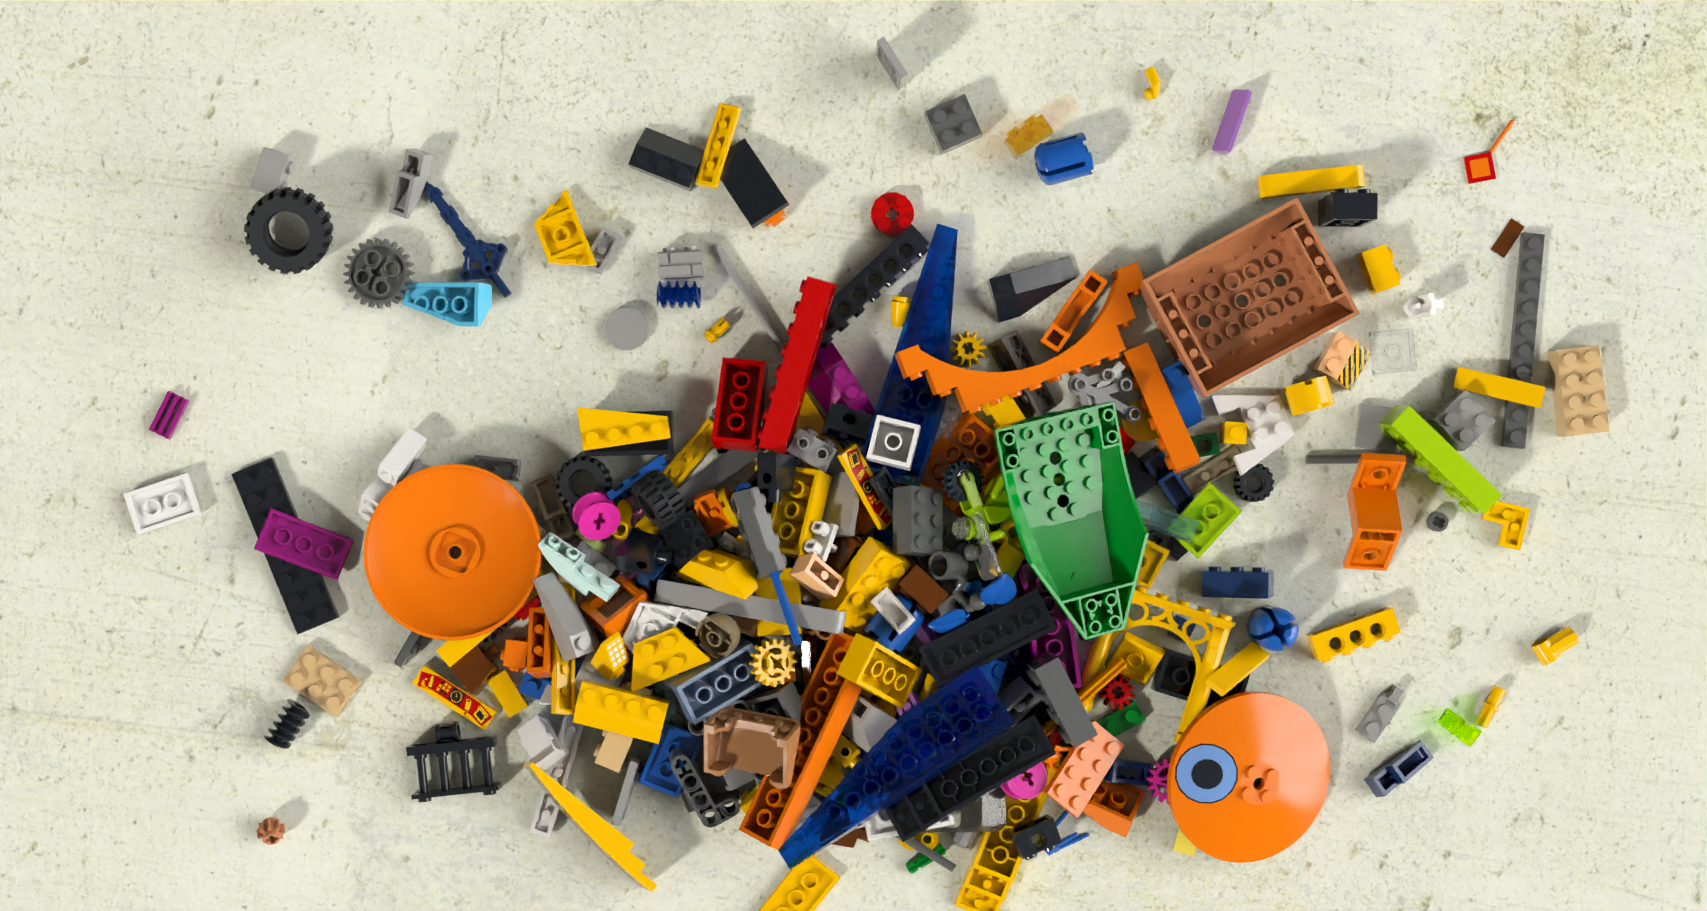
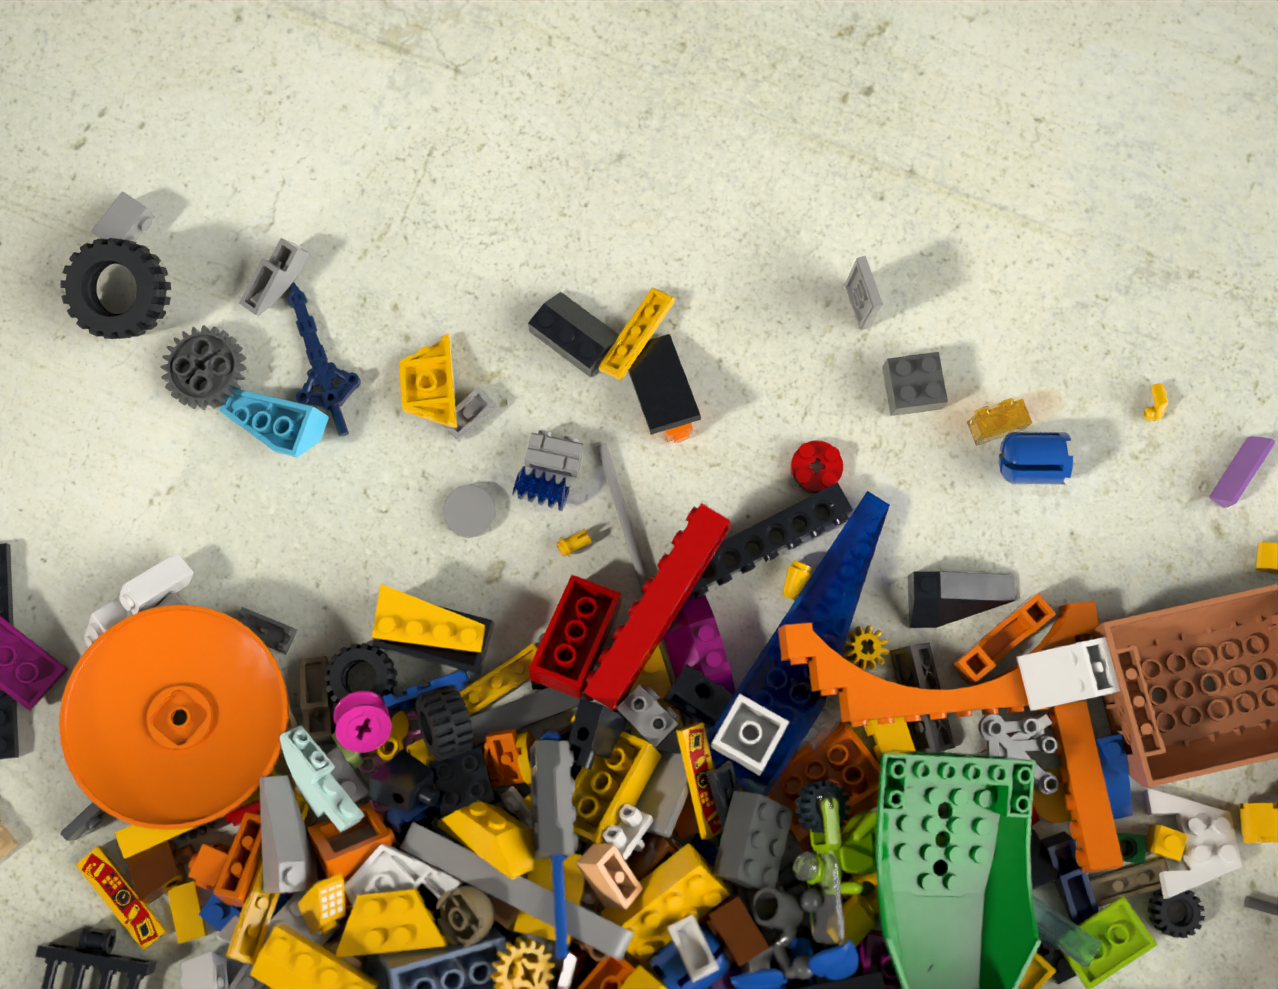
camera: 10 degrees right, 10 degrees down
(1126, 326) = (1068, 673): none -> white slope

